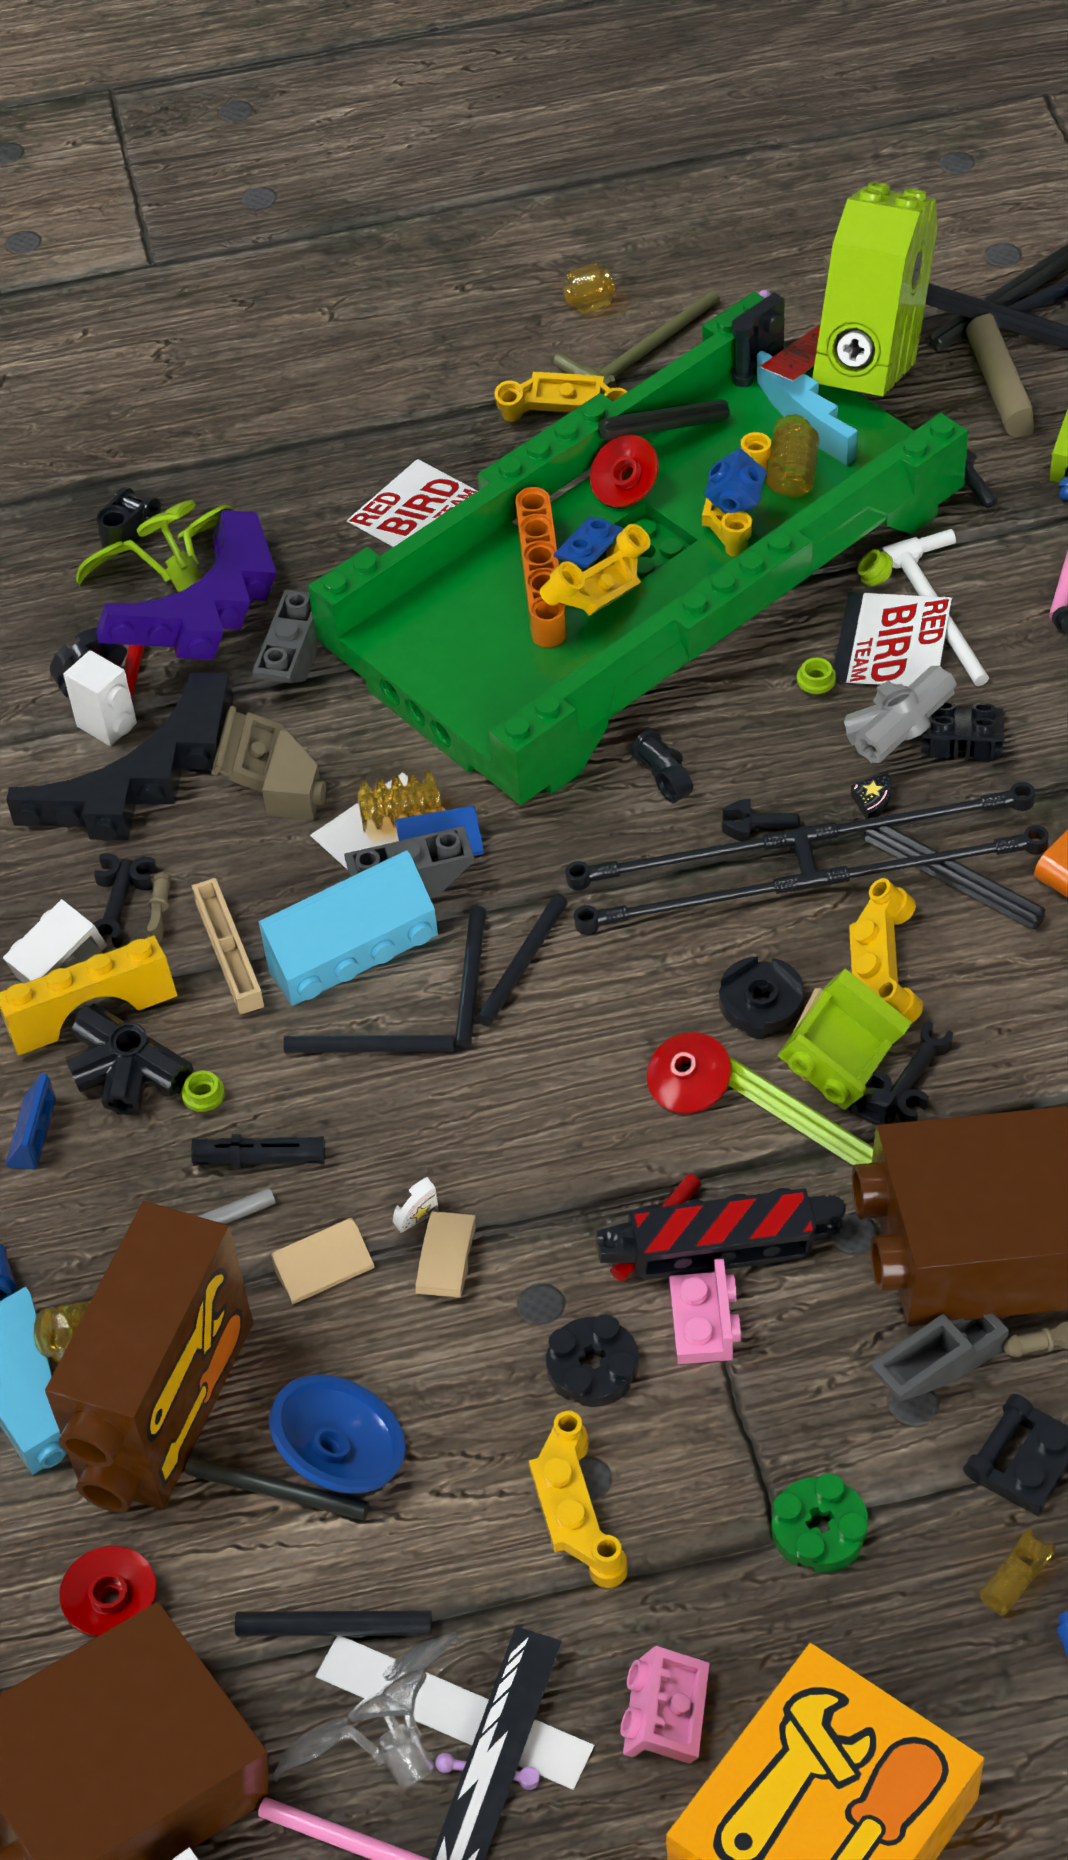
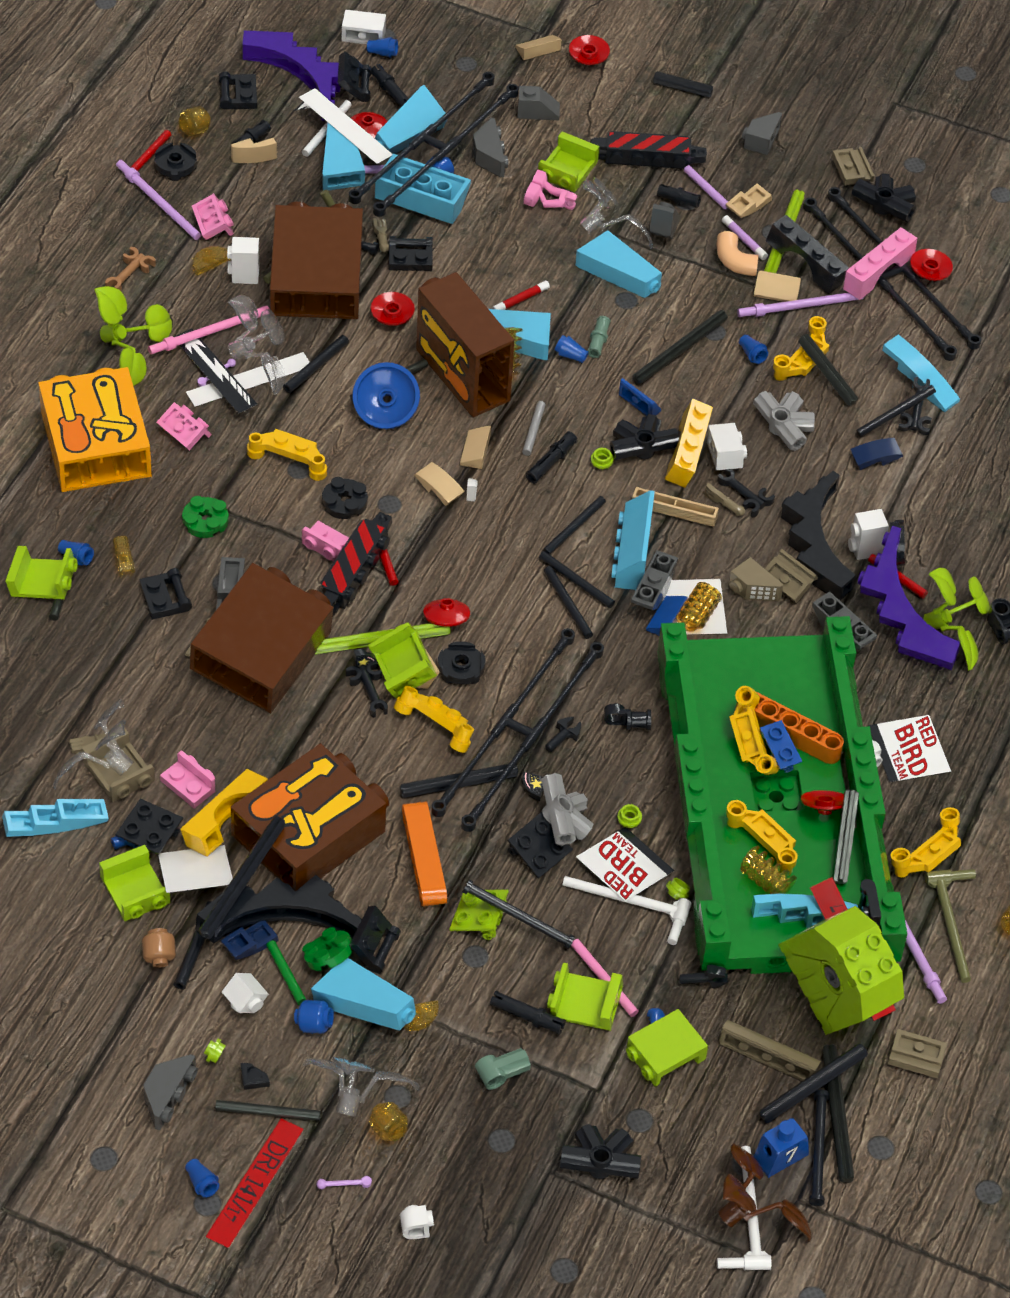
camera: 120 degrees right, 0 degrees up
(735, 483) = (758, 817): blue brick -> none

